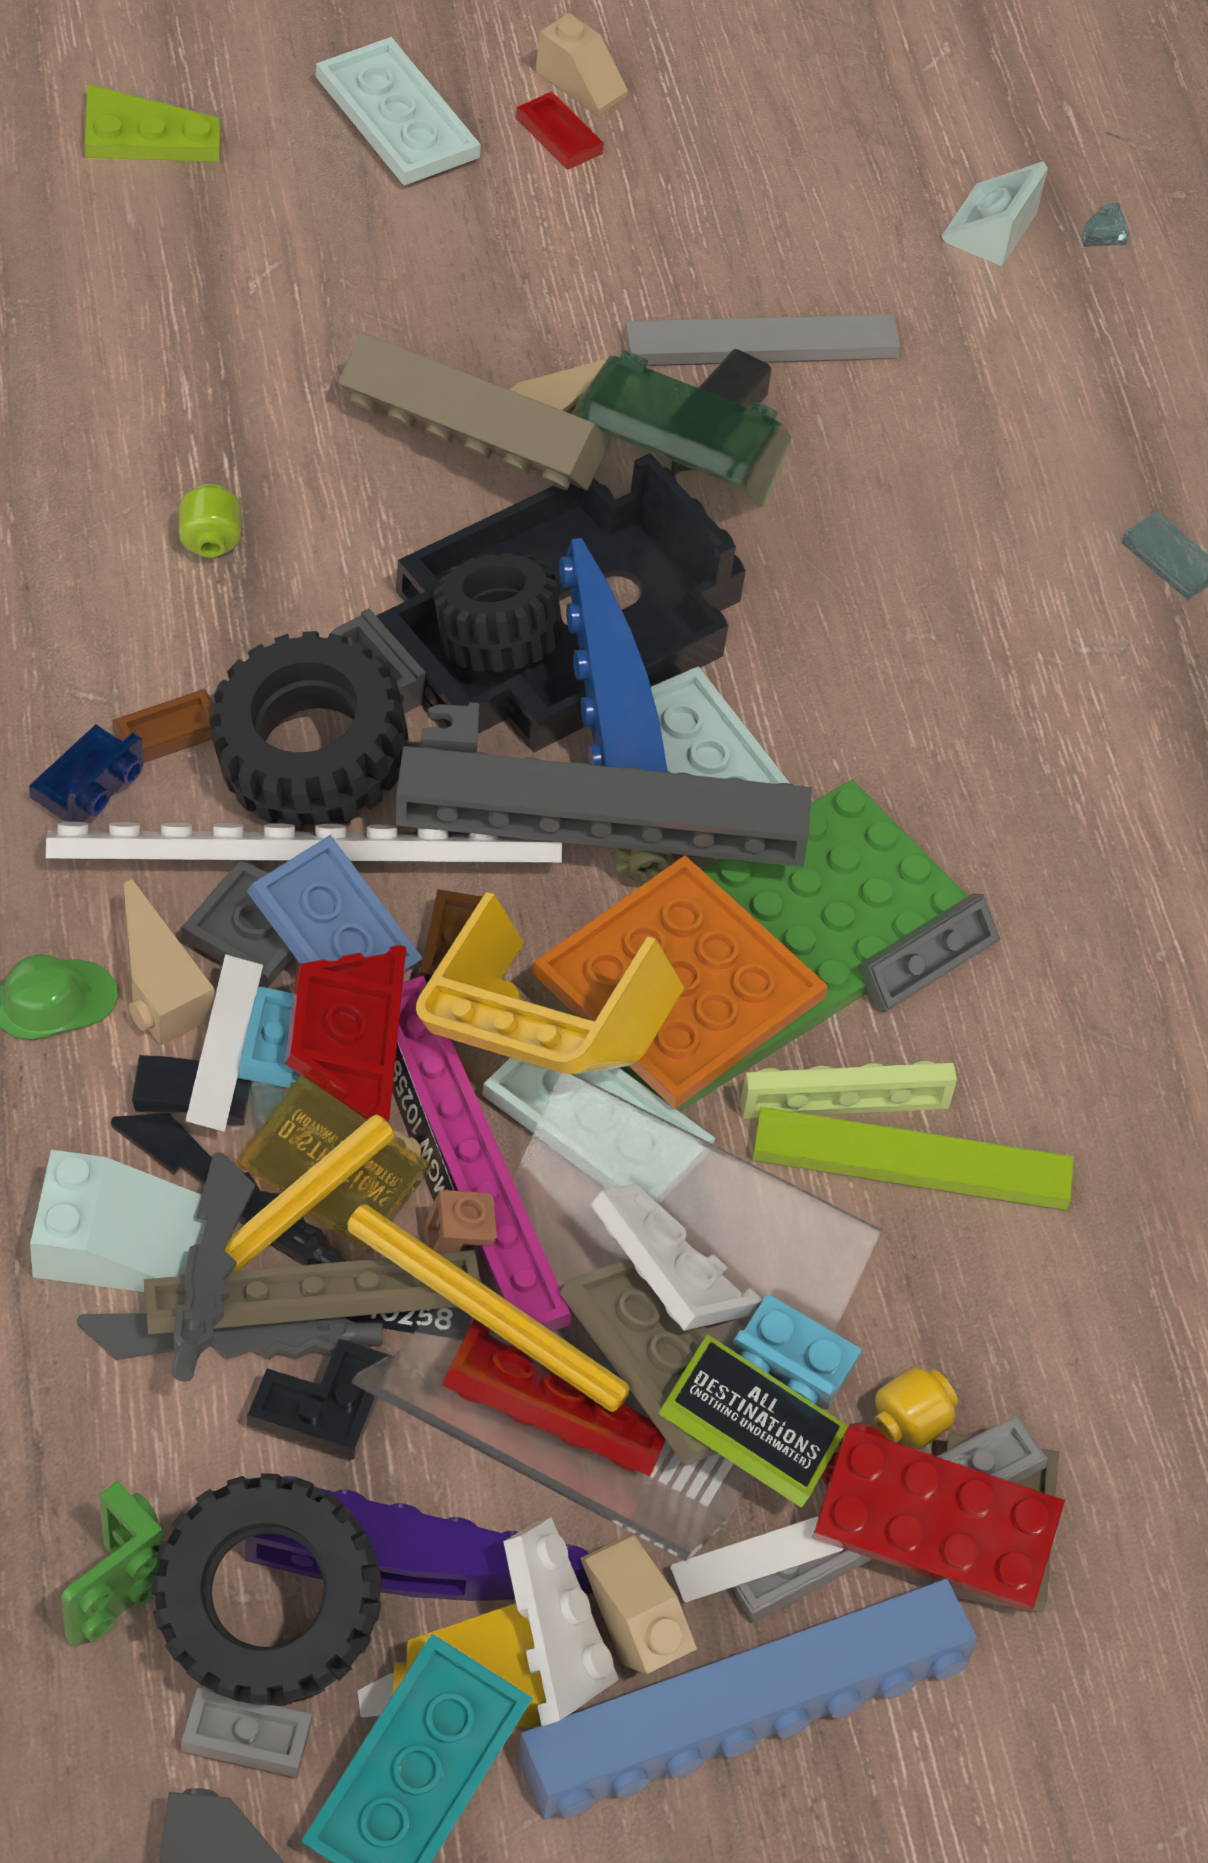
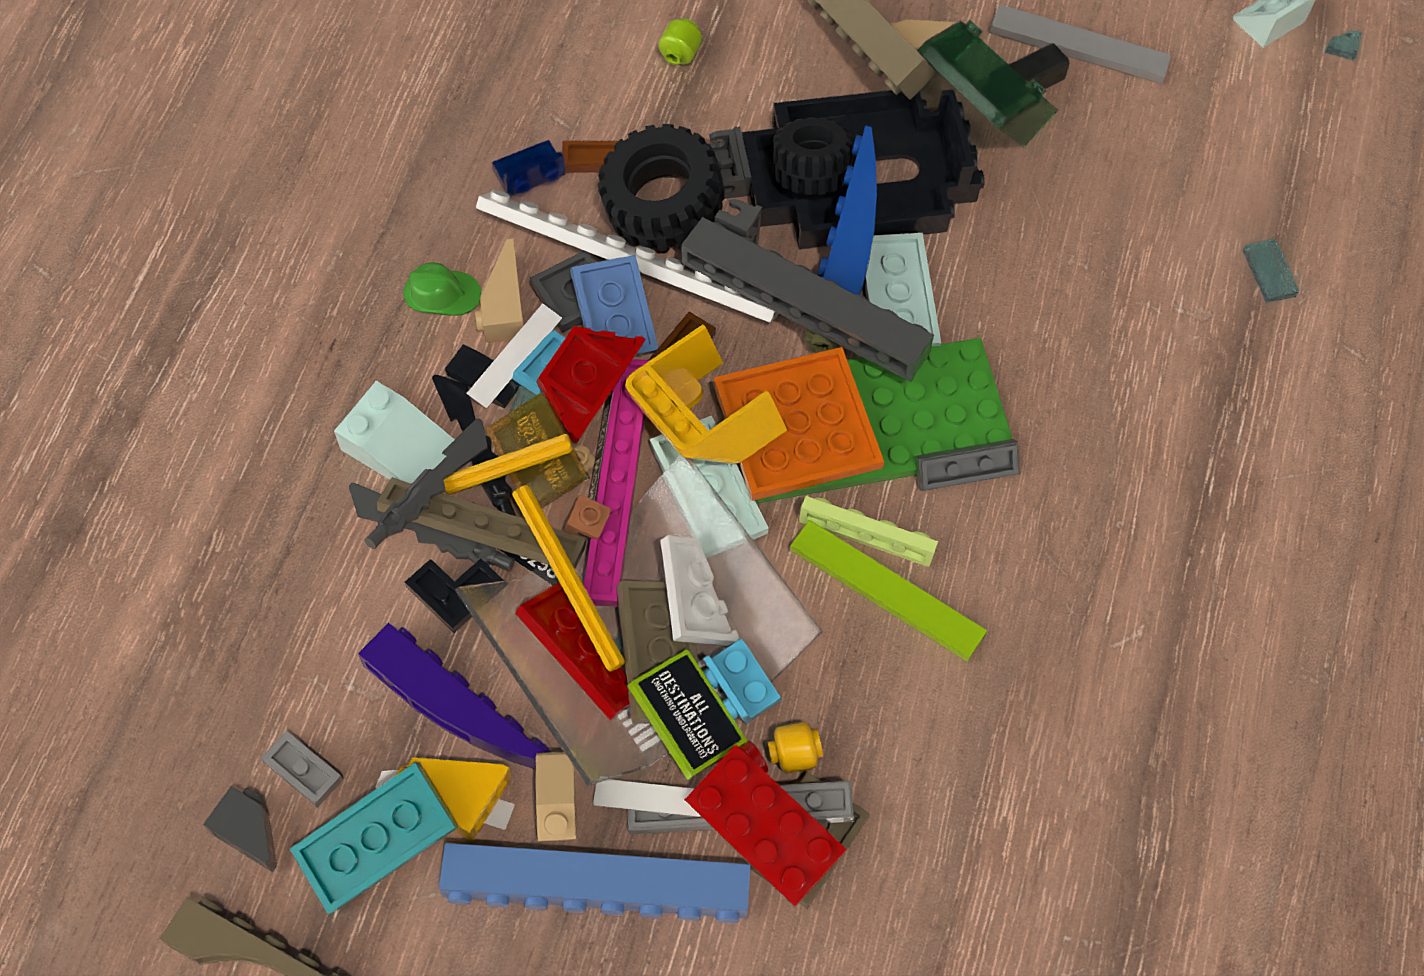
camera: 30 degrees right, 10 degrees up
(122, 1577) = (278, 648): bright green bracket -> none
(187, 1574) = (300, 684): black tyre -> none
(565, 1636) = (501, 792): white wing -> none

